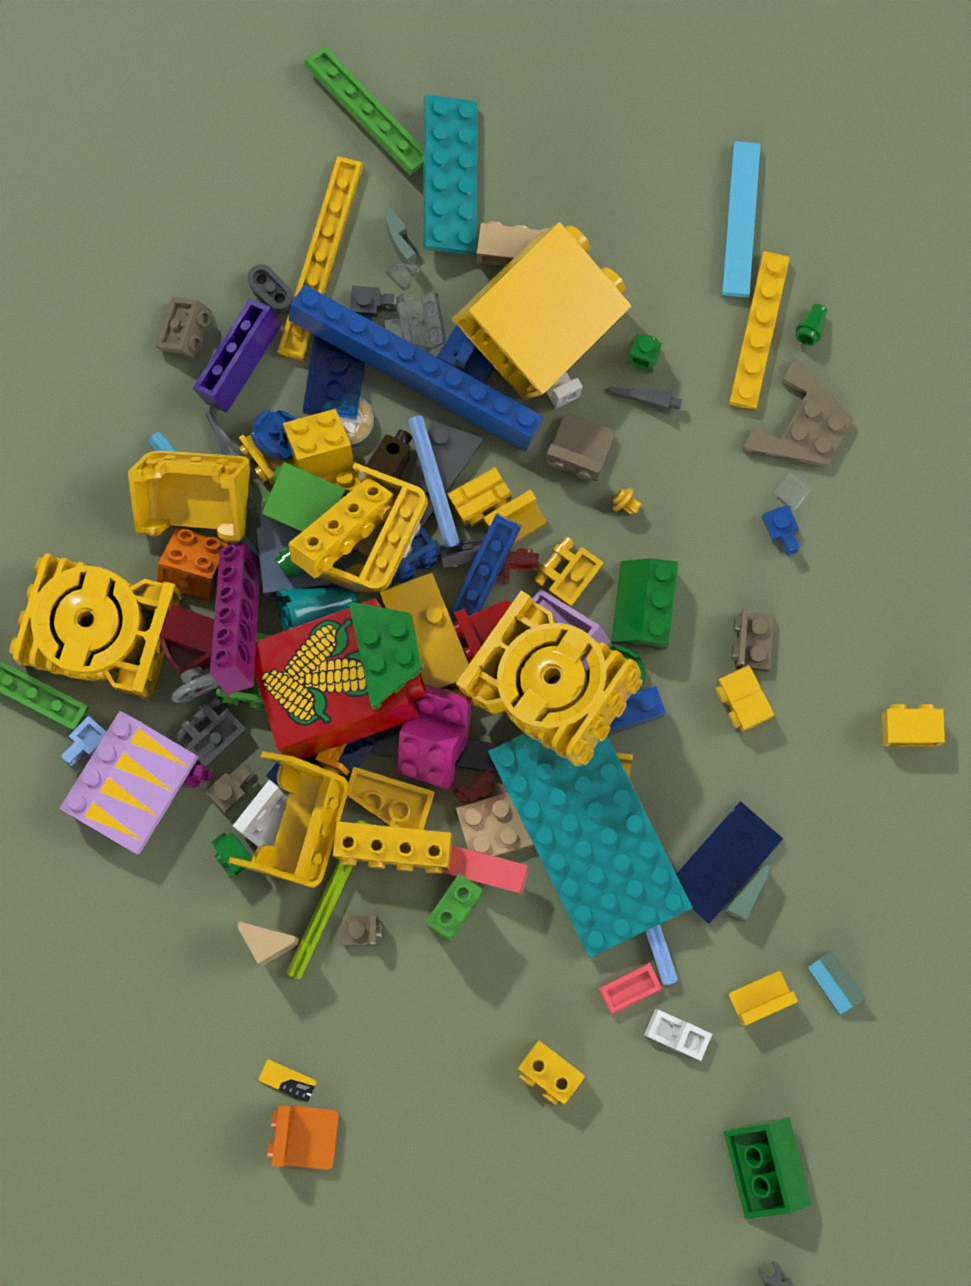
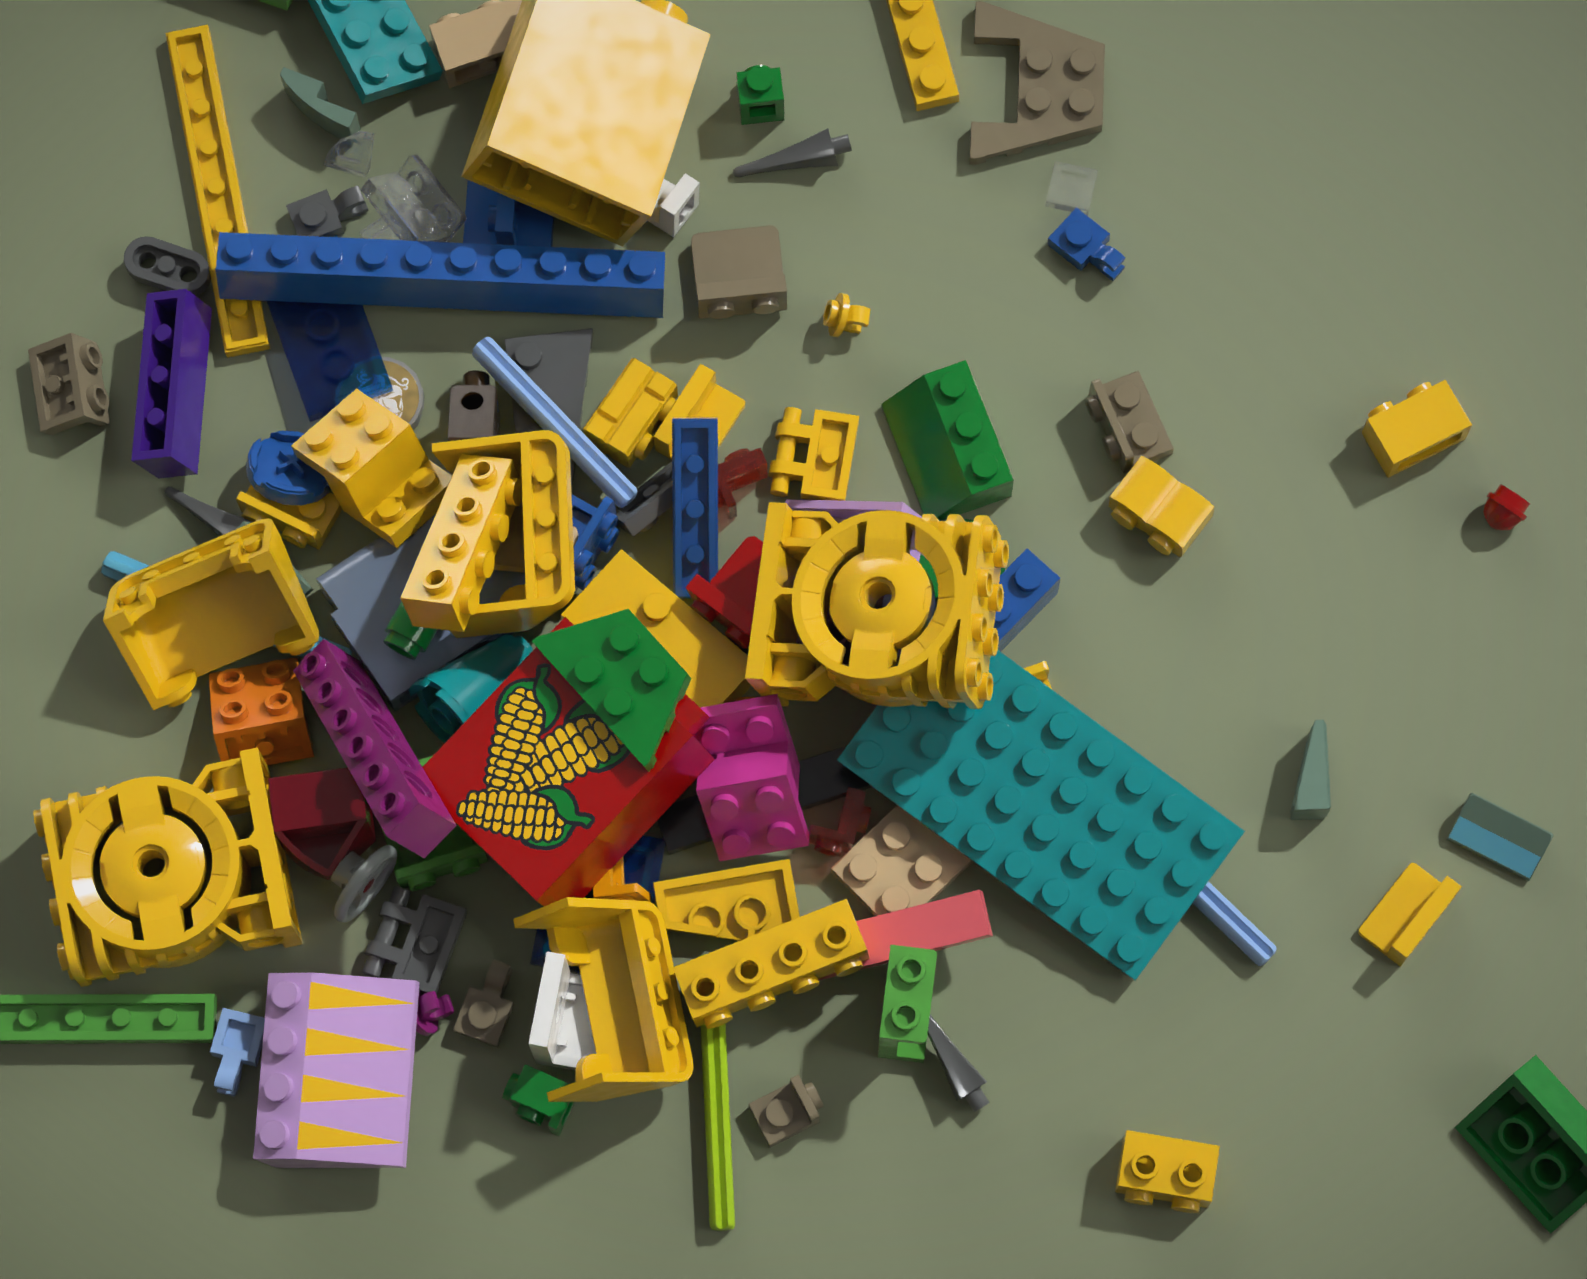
camera: 25 degrees left, 5 degrees down
(266, 943) = (660, 1193): tan slope -> none
(300, 497) = (376, 534): bright green panel -> none
(466, 959) = (961, 1075): none -> dark grey piece
(630, 988) = (1215, 995): coral tile -> none
(678, 1034) = (1317, 1024): white slope -> none
(726, 861) = (1256, 745): clear blue tile -> none
(938, 798) = (1504, 508): none -> red plate

